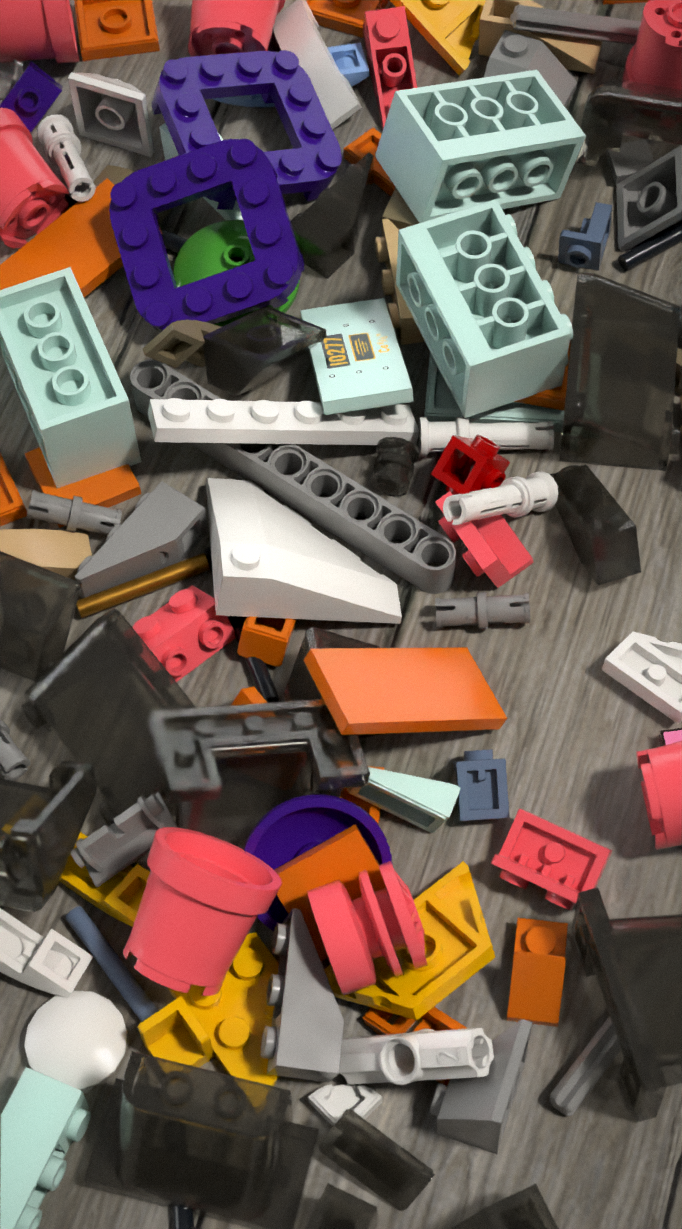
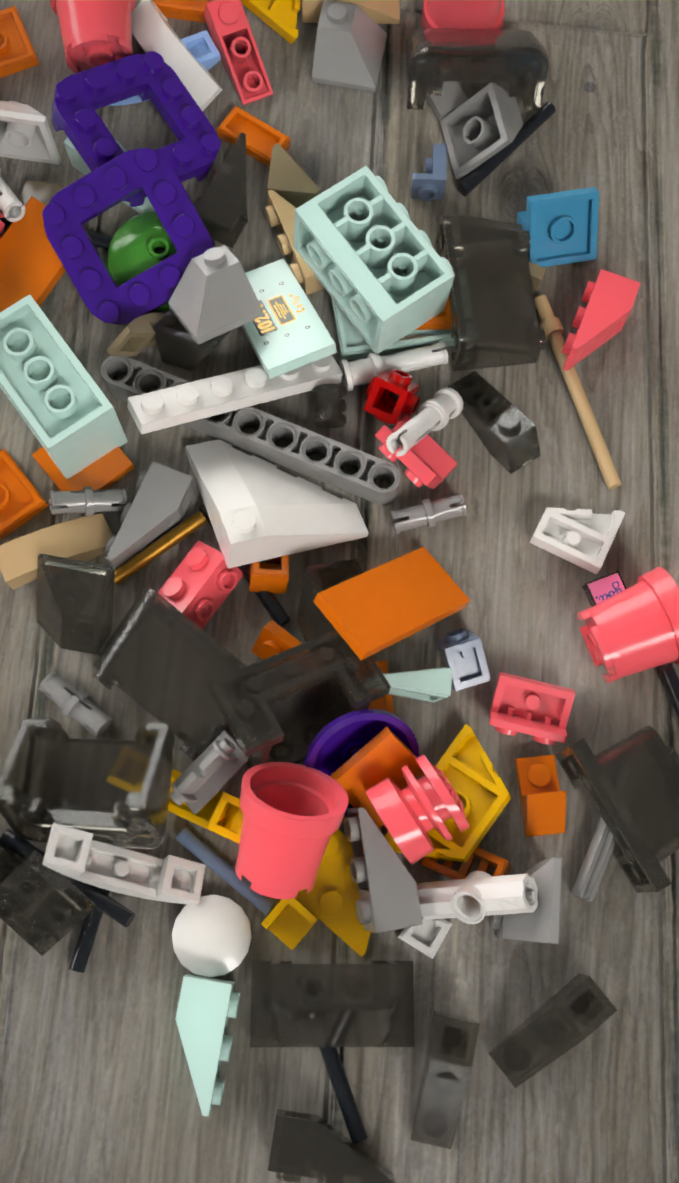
camera: 20 degrees left, 15 degrees up
(284, 311) = (214, 295): none -> light grey slope
(375, 1160) = (461, 977): clear smoke slope -> none
(478, 144) = (330, 111): light aqua brick -> none

